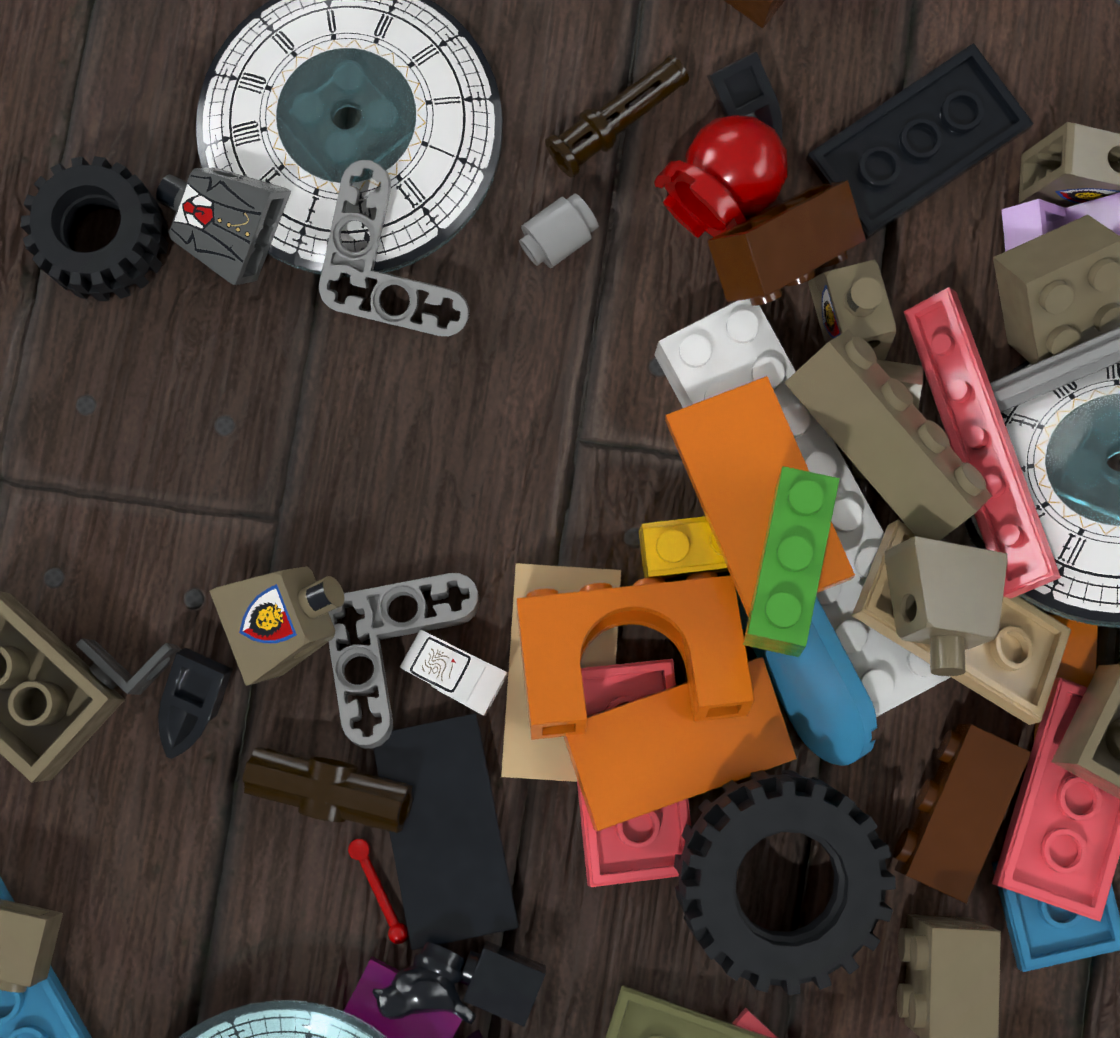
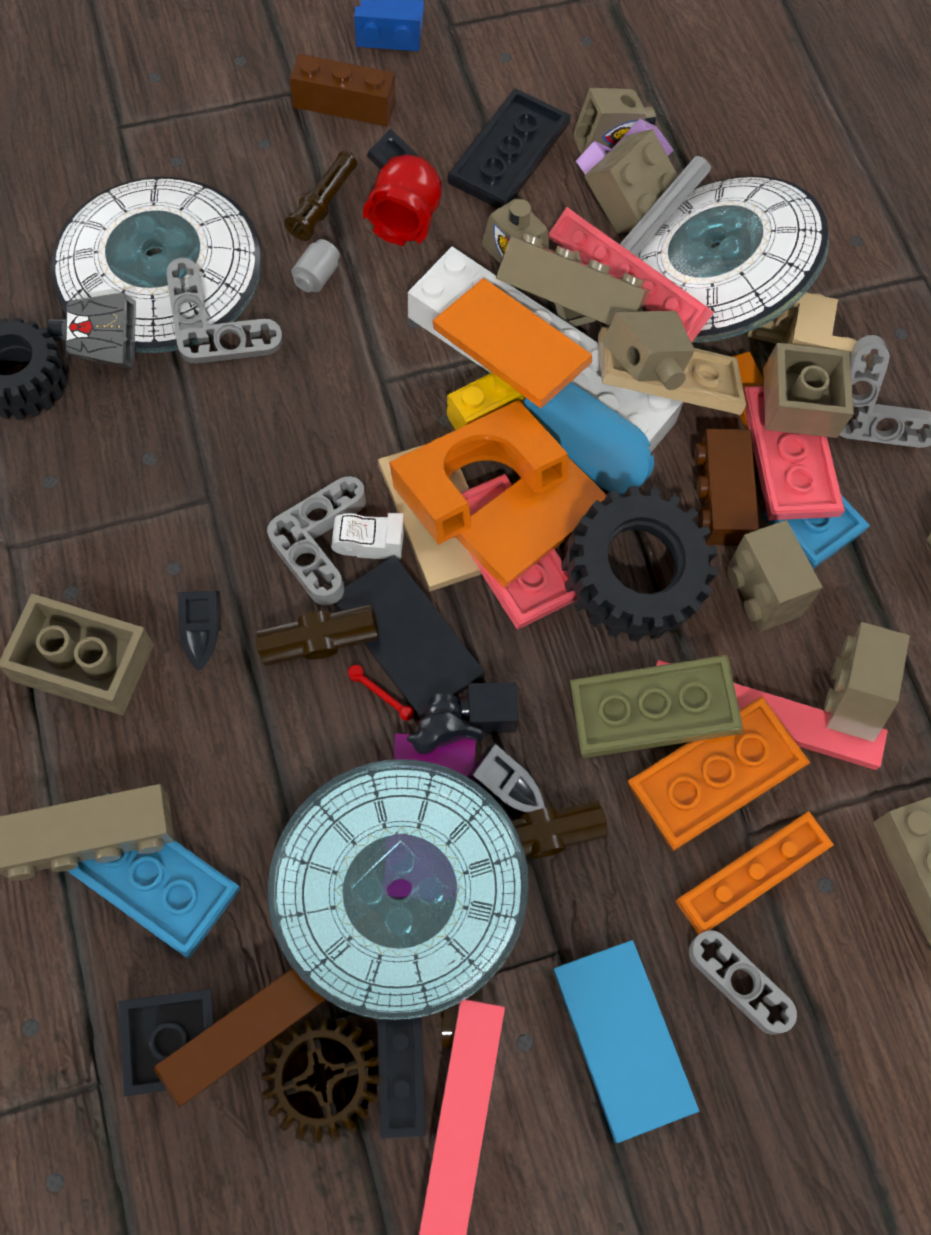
camera: 25 degrees left, 15 degrees down
(112, 673) = (159, 624): dark grey bracket -> none
(277, 620) = (237, 543): dark tan torso -> none
(787, 243) = (458, 211): reddish brown brick -> none
(791, 562) = (550, 354): bright green brick -> none

